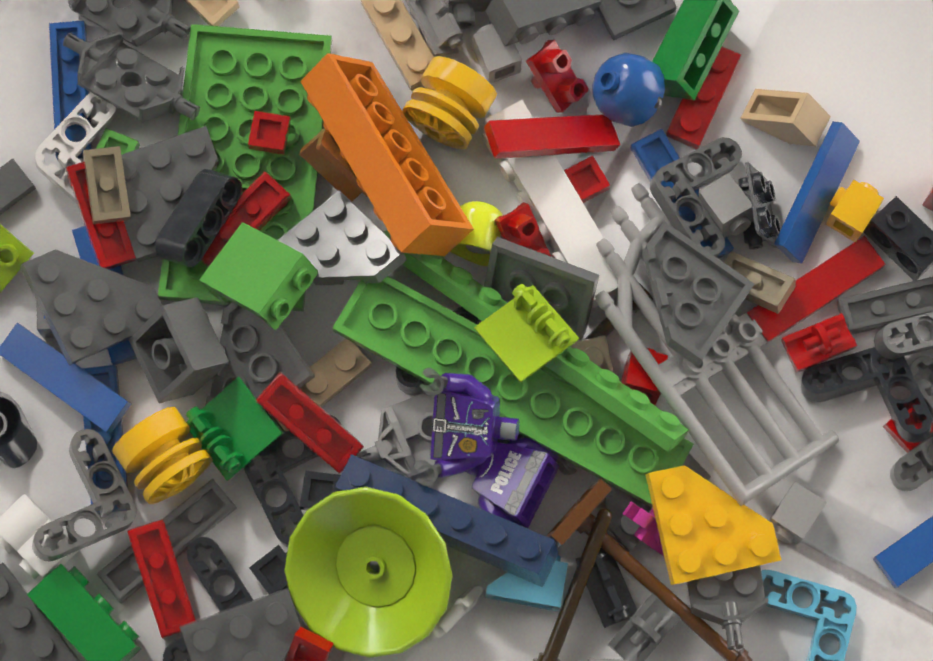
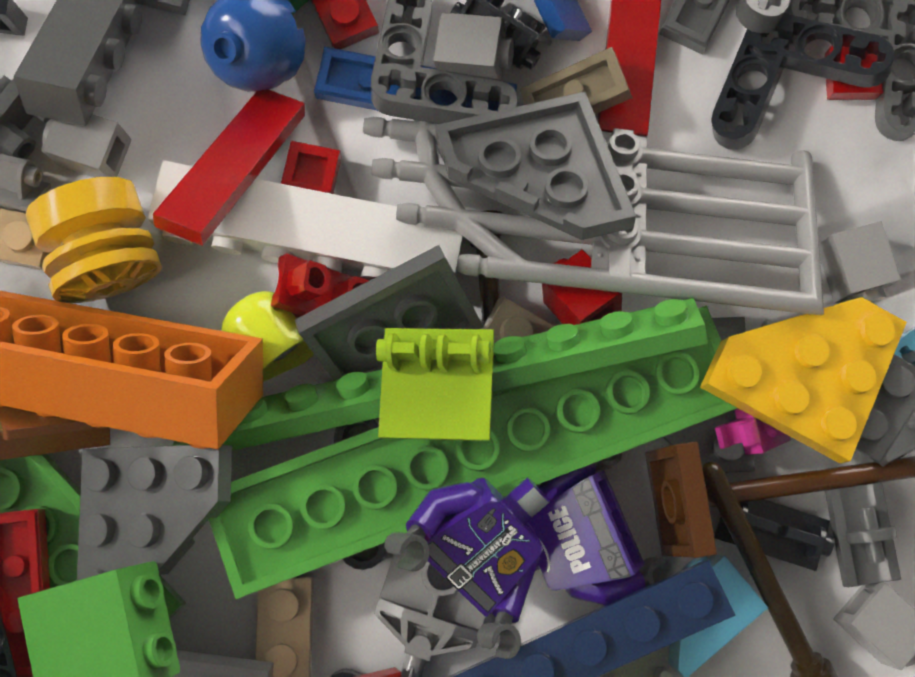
camera: 50 degrees left, 5 degrees up
(555, 76) = (168, 104): red hips -> none
(818, 342) = (697, 84): red hips -> none

